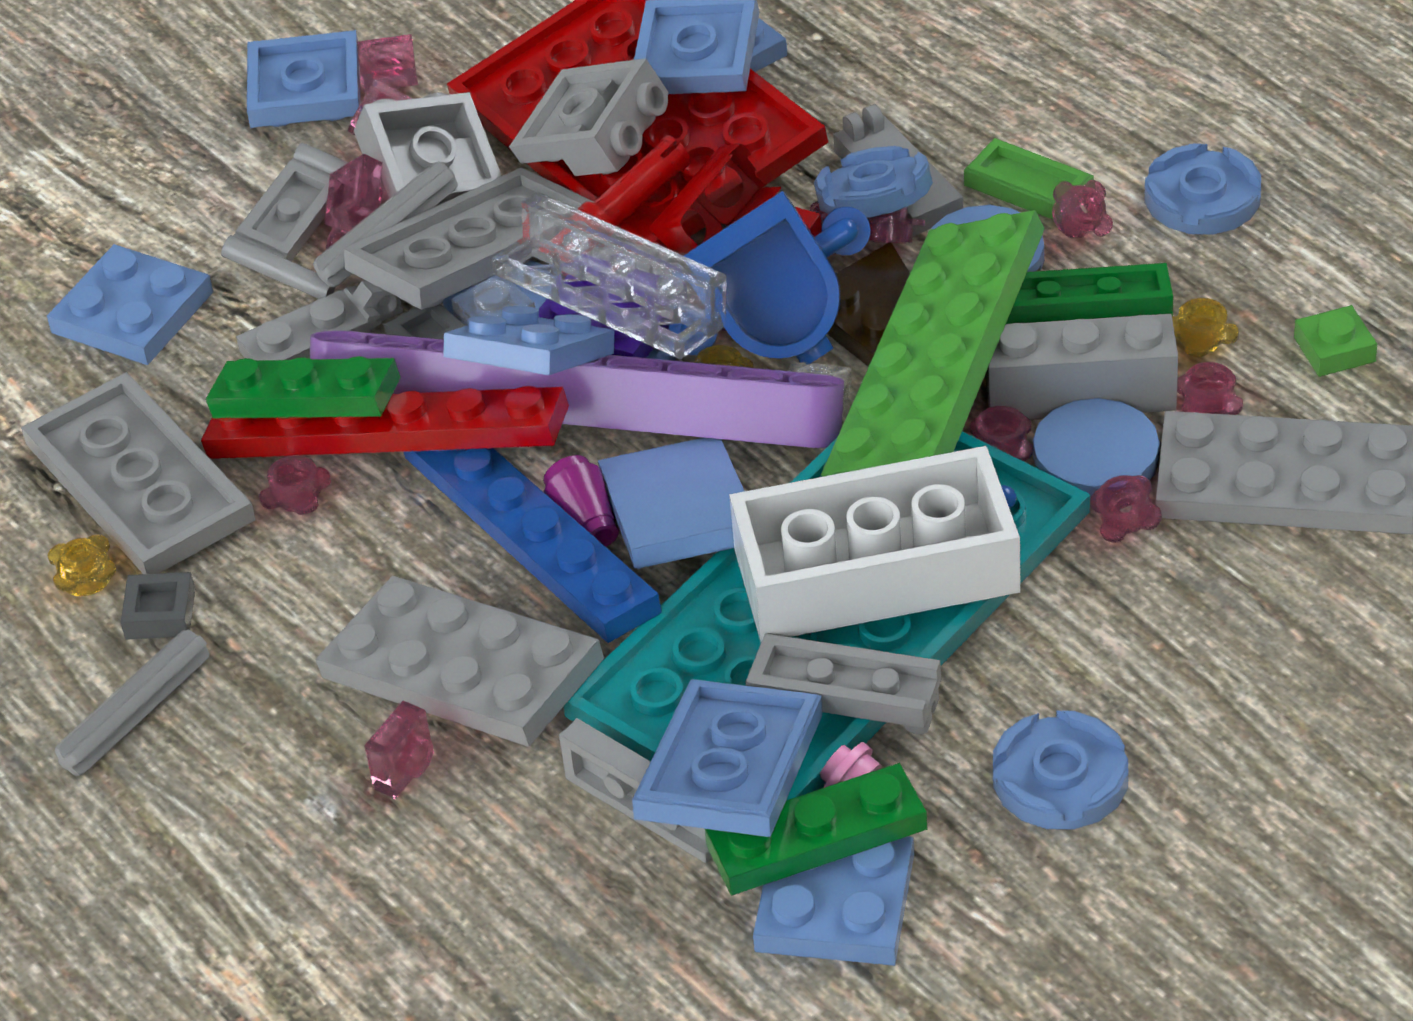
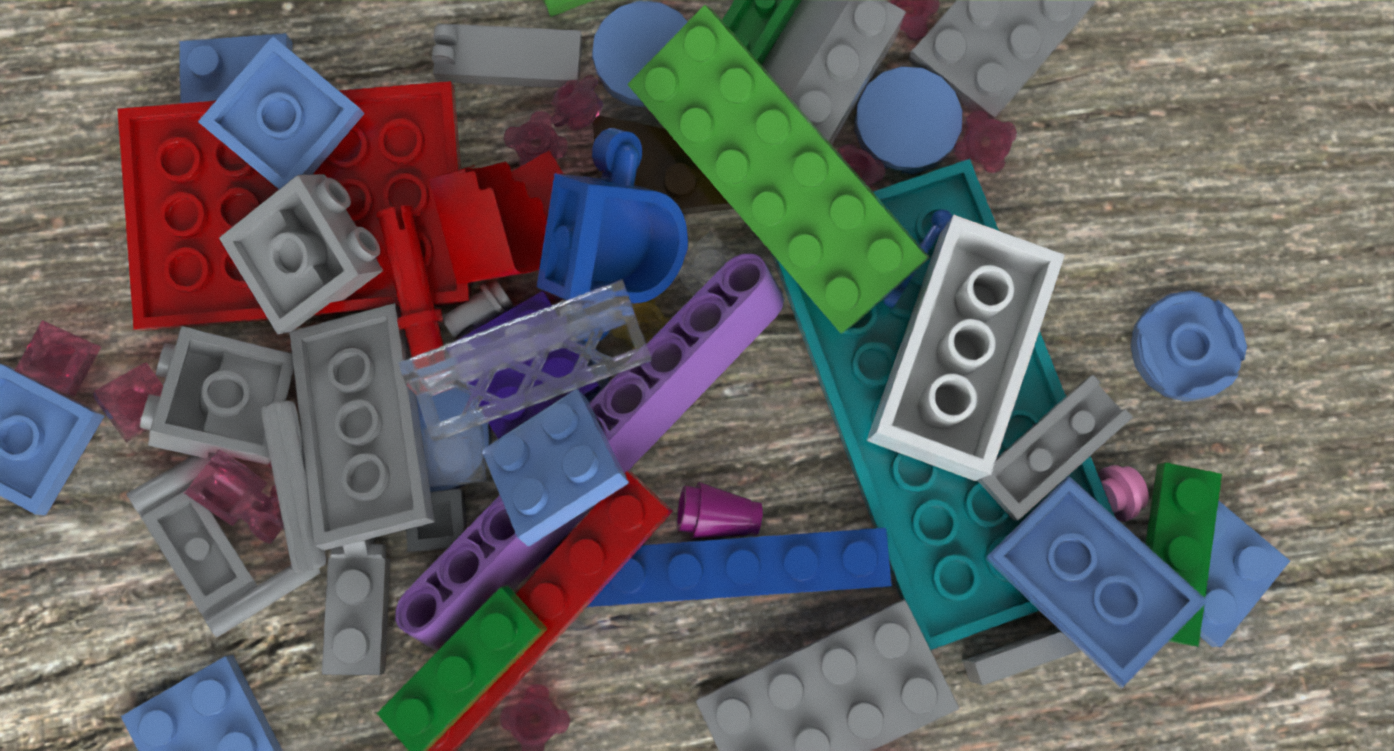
camera: 65 degrees left, 35 degrees up
(672, 500) = (776, 446): medium blue tile -> none
(874, 181) = (538, 88): medium blue tile -> none

